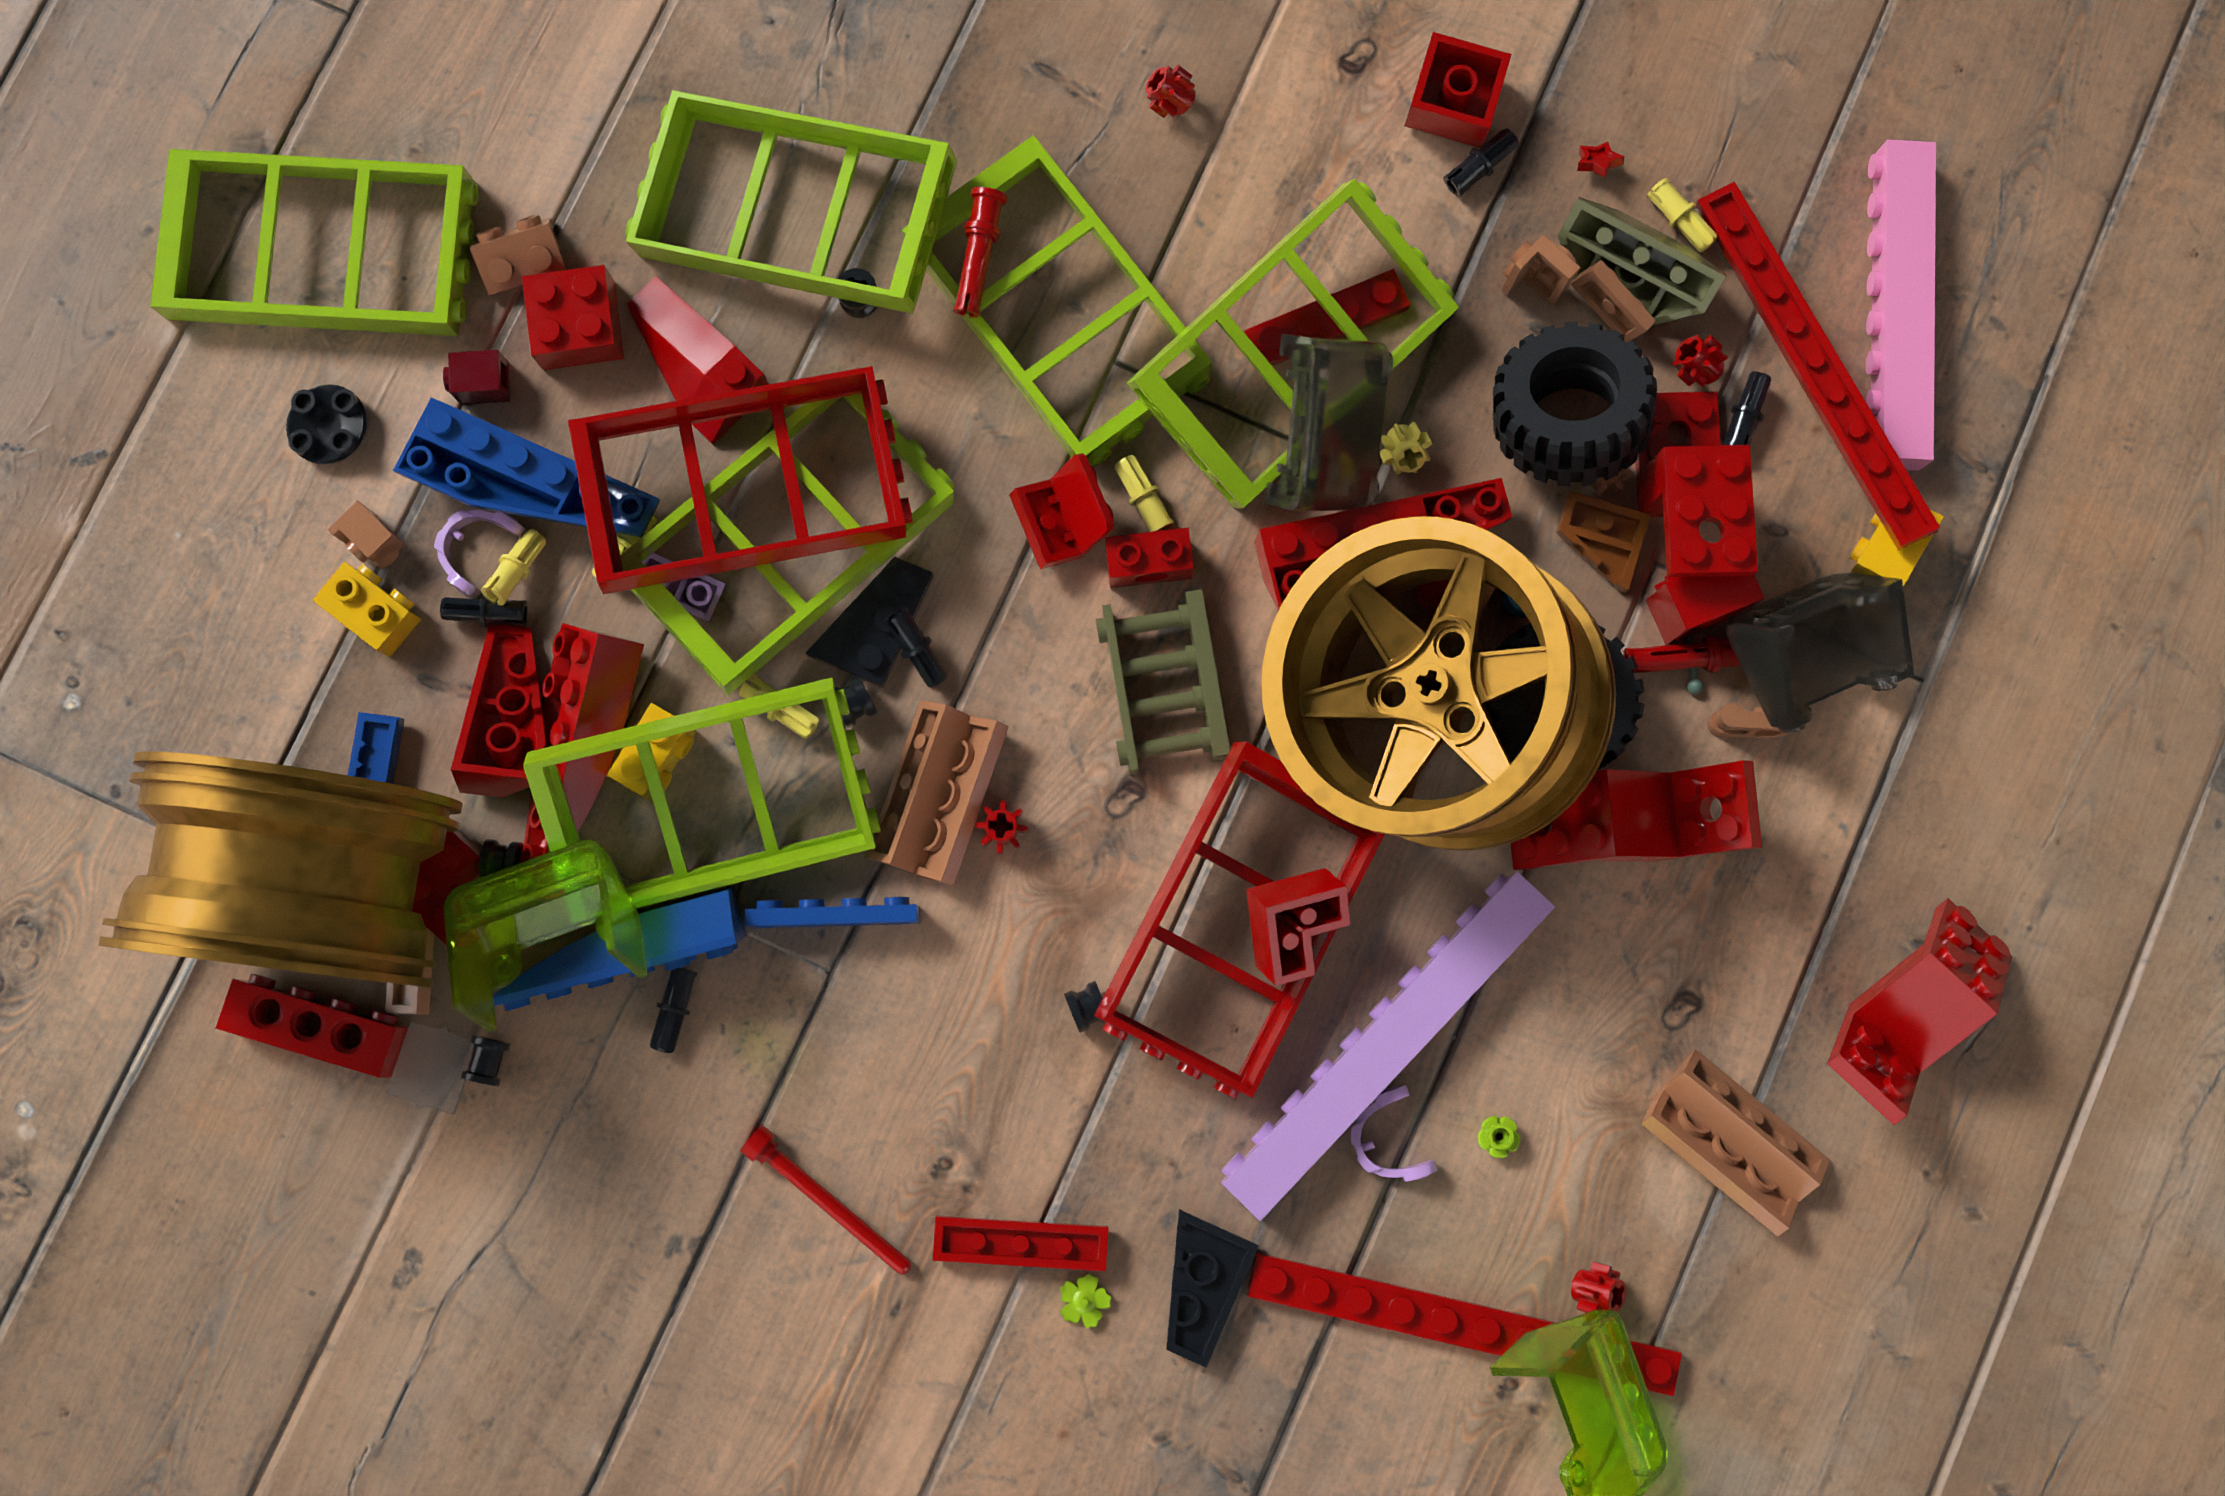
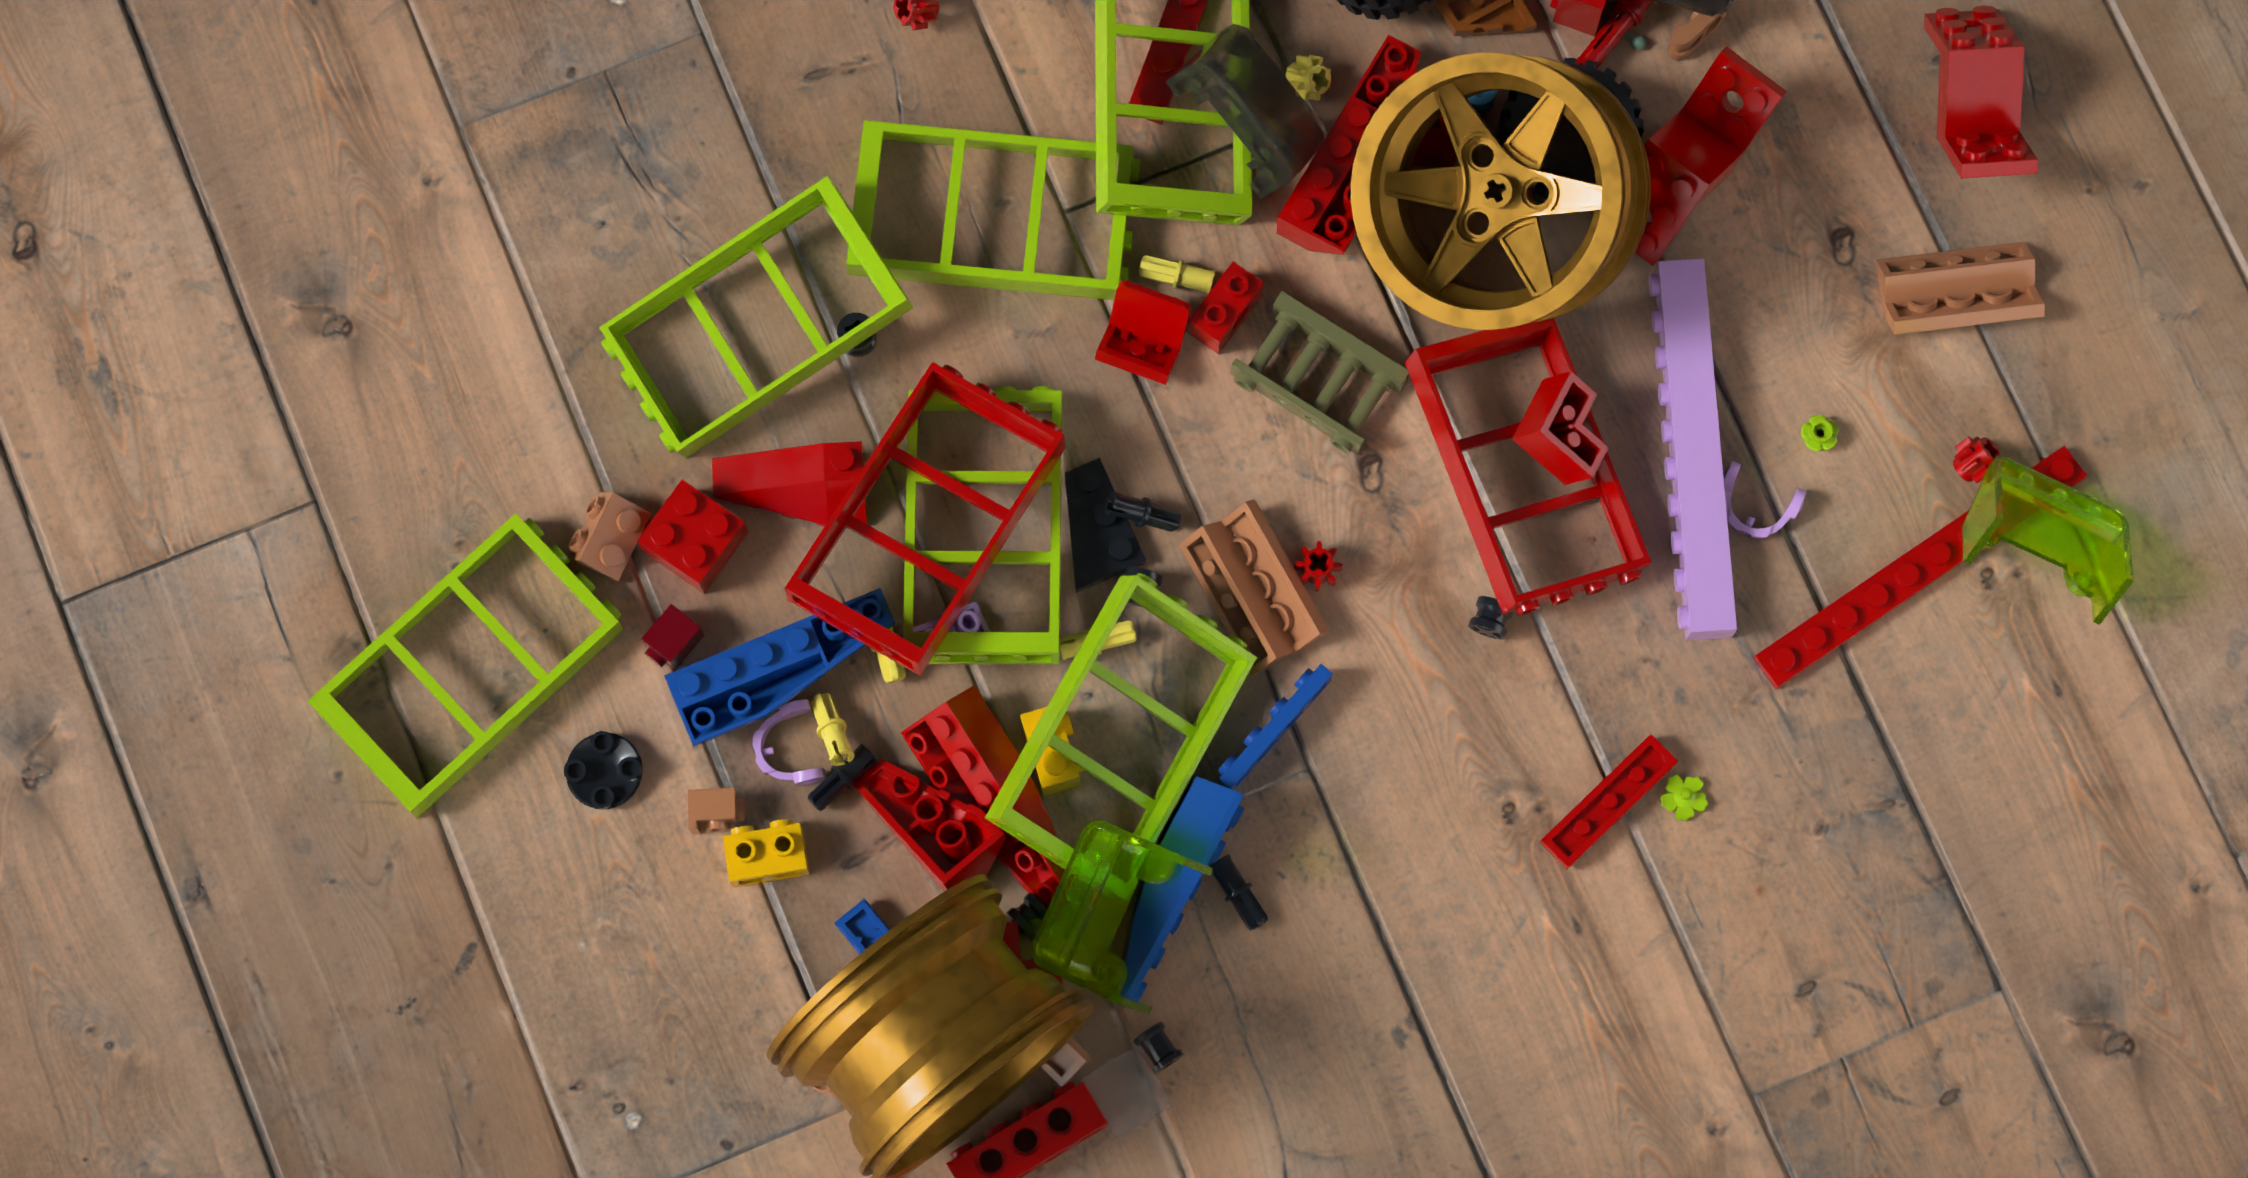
camera: 45 degrees left, 5 degrees down
(764, 1148) = (1390, 914): red piece -> none
(981, 233) = (904, 212): red pin -> none
(1204, 1285) = (1745, 707): black wing -> none

